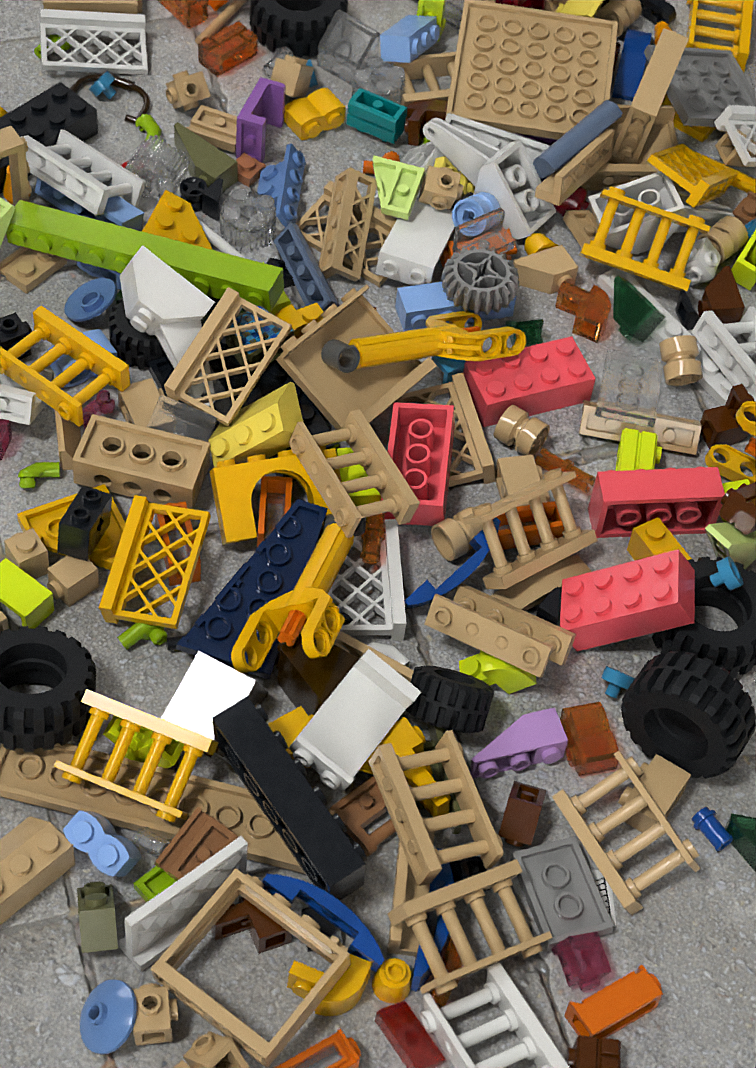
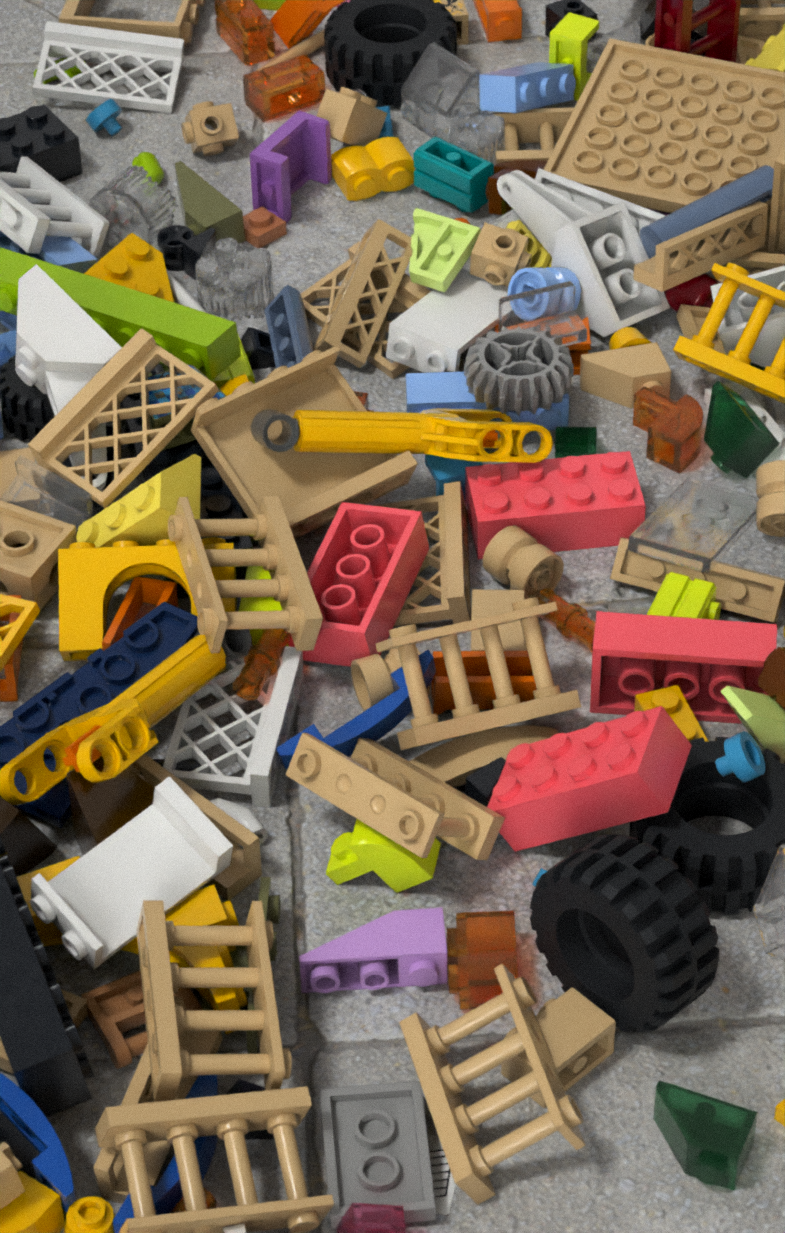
camera: 20 degrees right, 10 degrees down
(120, 83) = (129, 117): dark brown piece -> none
(215, 127) = (229, 174): tan plate -> none
(284, 184) = (302, 244): medium blue bracket -> none
(450, 699) = (288, 874): black tyre -> none
(521, 814) = (351, 1042): reddish brown slope -> none
(712, 828) = (627, 1094): blue pin -> none

